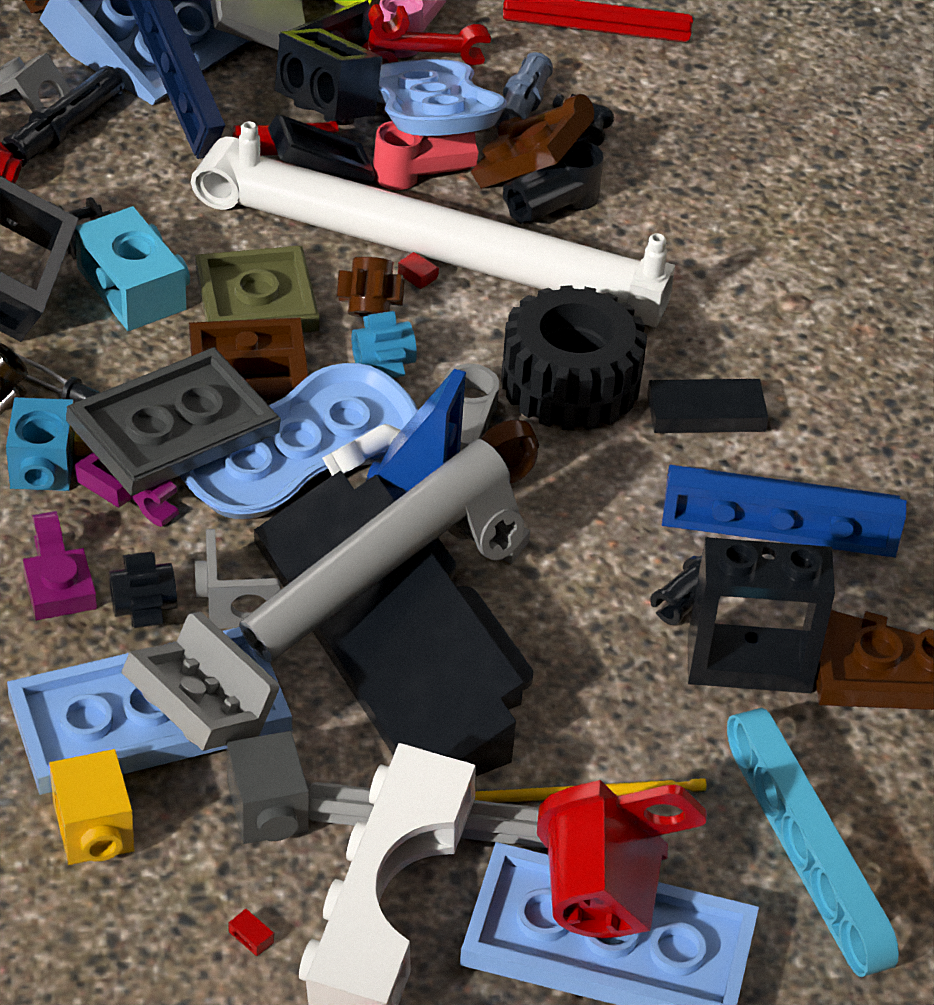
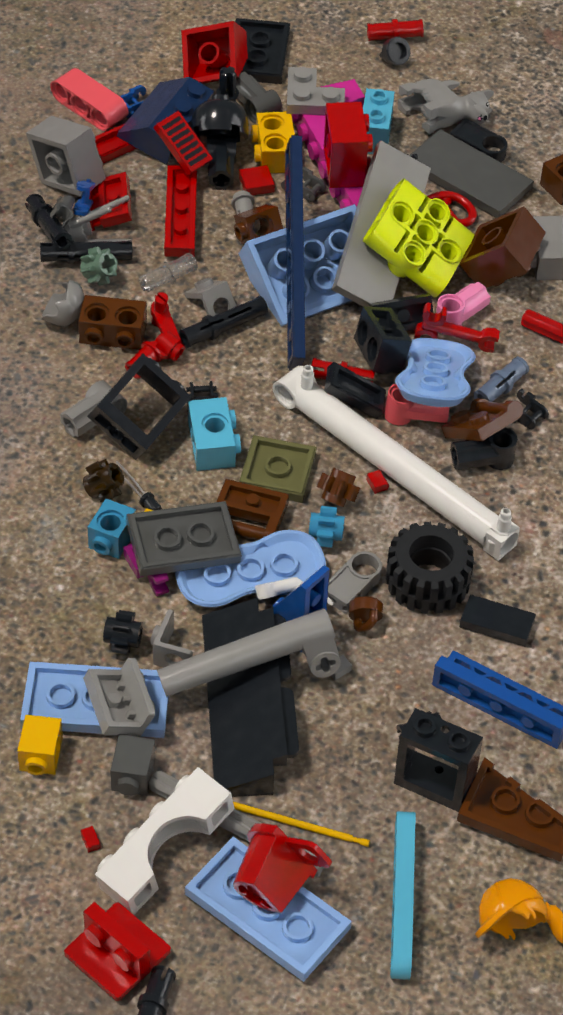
camera: 25 degrees right, 5 degrees up
(57, 578) = (87, 609): magenta plate -> none

